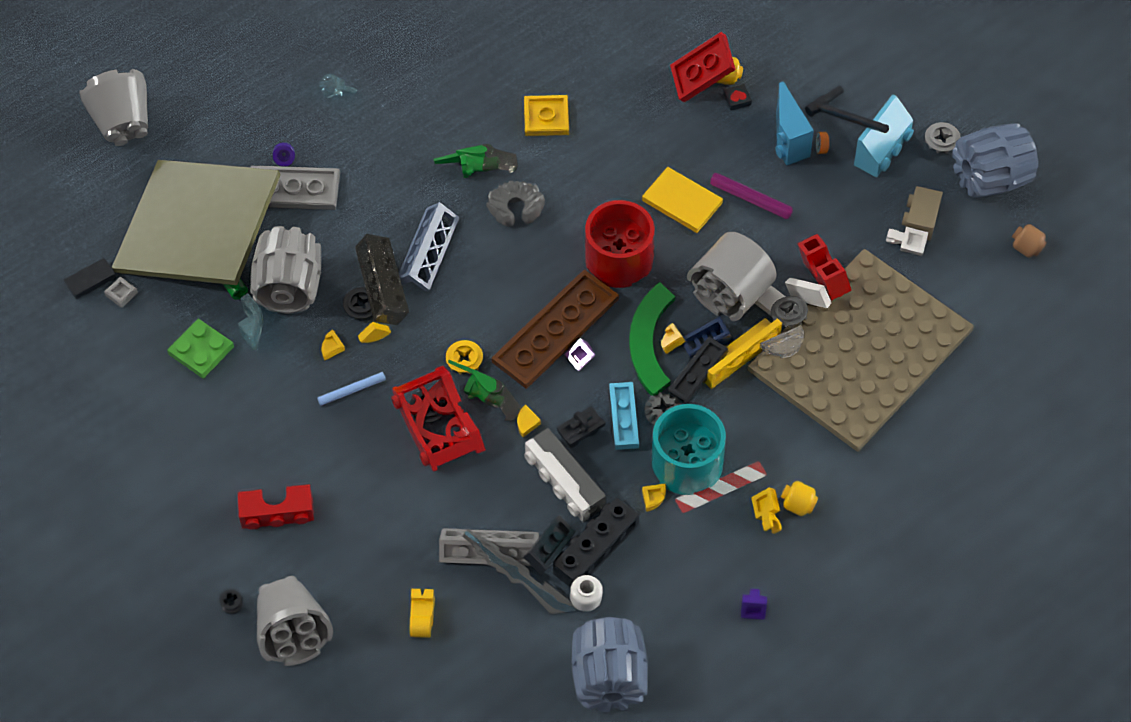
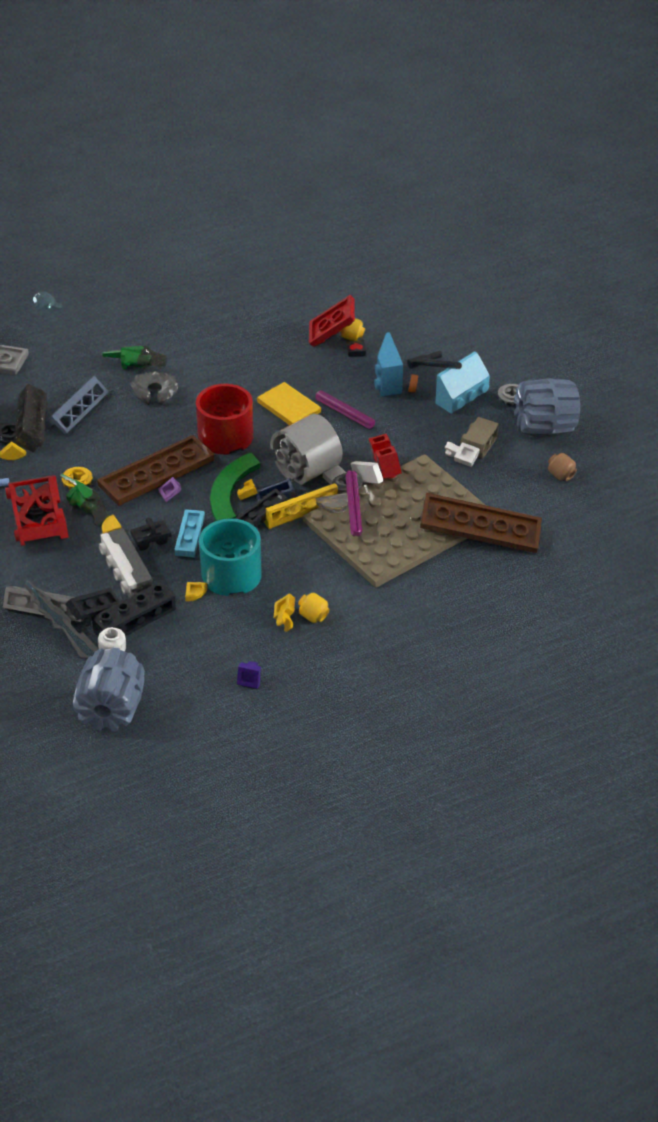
camera: 10 degrees right, 15 degrees down
(546, 115) = (201, 339): yellow tile -> none
(722, 486) = (256, 593): clear sticker -> none
(808, 345) = (353, 503): none -> magenta axle
(959, 344) = (481, 522): none -> reddish brown plate

